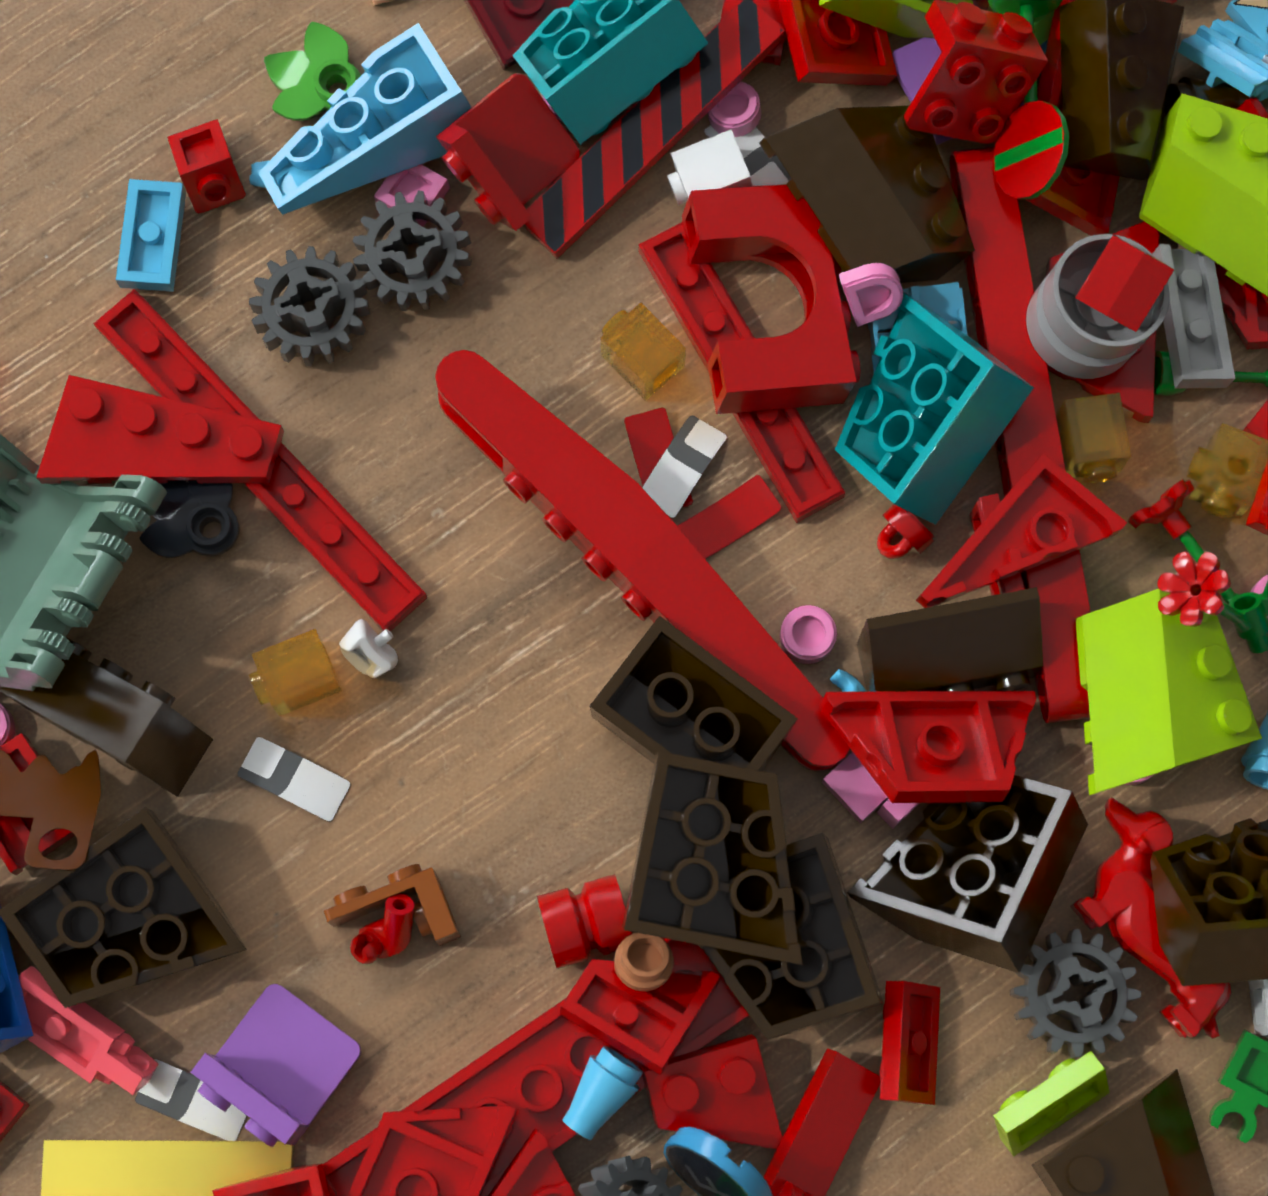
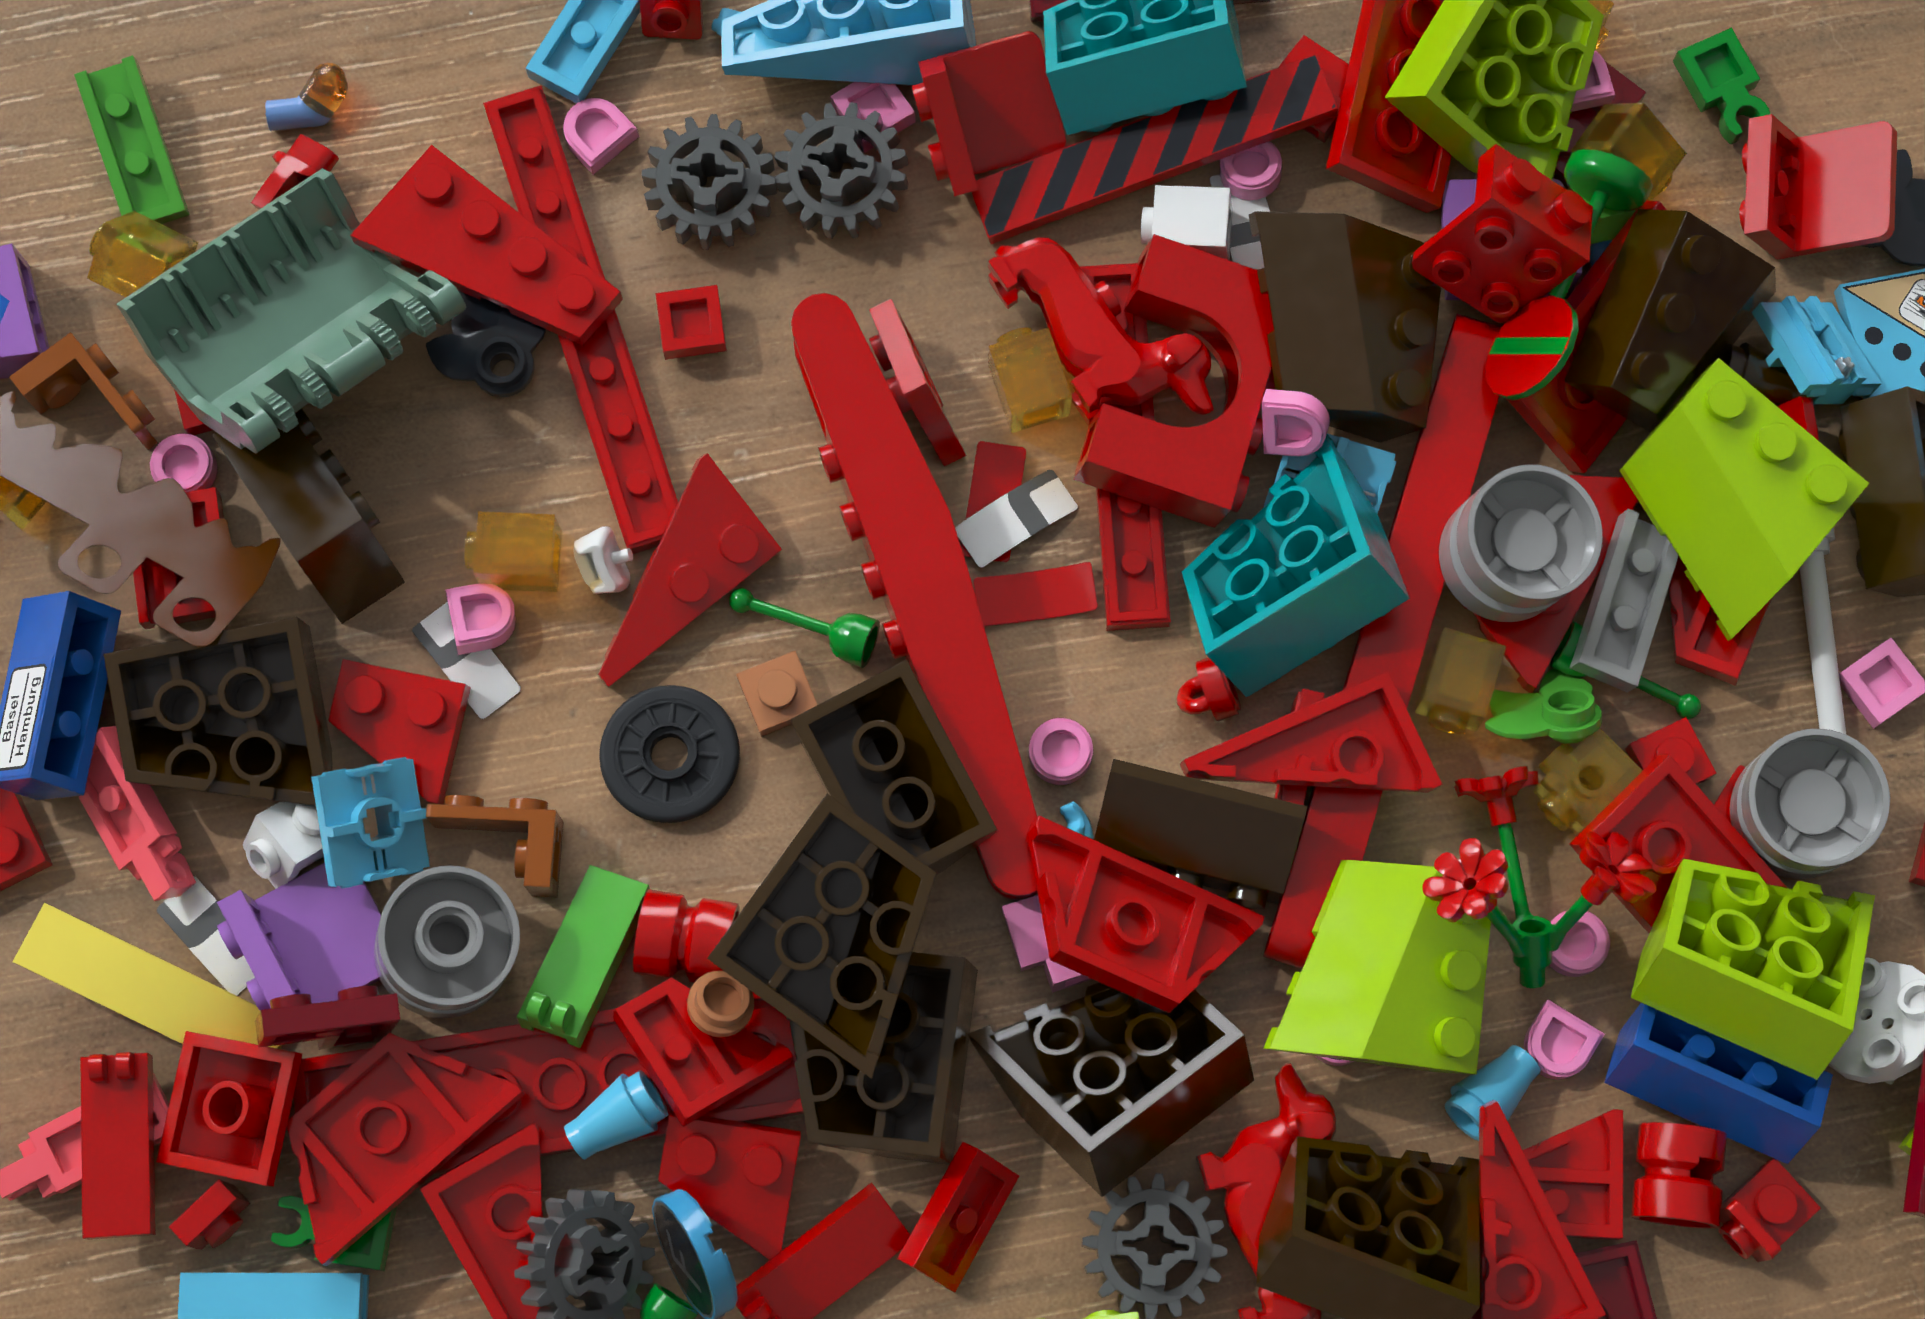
camera: 25 degrees right, 0 degrees up
(197, 307) = (597, 132): none -> bright pink tile
(223, 990) = (283, 841): none -> white bracket
(255, 943) = (341, 806): none -> medium azure piece
(267, 853) = (402, 716): none -> red wing
(289, 739) = (480, 617): none -> bright pink tile
(346, 1115) = (353, 1019): none -> dark red plate
(348, 425) = (691, 322): none -> red plate
(387, 935) = (487, 855): red arm -> none
(395, 1015) = (446, 941): none -> light grey wheel
(449, 605) = (703, 555): none -> red wing
(502, 815) = (675, 793): none -> black wheel
(509, 974) = (584, 956): none -> bright green hinge
(552, 392) = (912, 383): none -> red wing
(561, 691) = (776, 692): none -> nougat plate
(597, 619) = (850, 635): none -> green hinge
(678, 296) = (1089, 337): none -> red animal
(1124, 283) = (1550, 529): red piece -> none
(1179, 424) = (1560, 710): none -> bright green plate

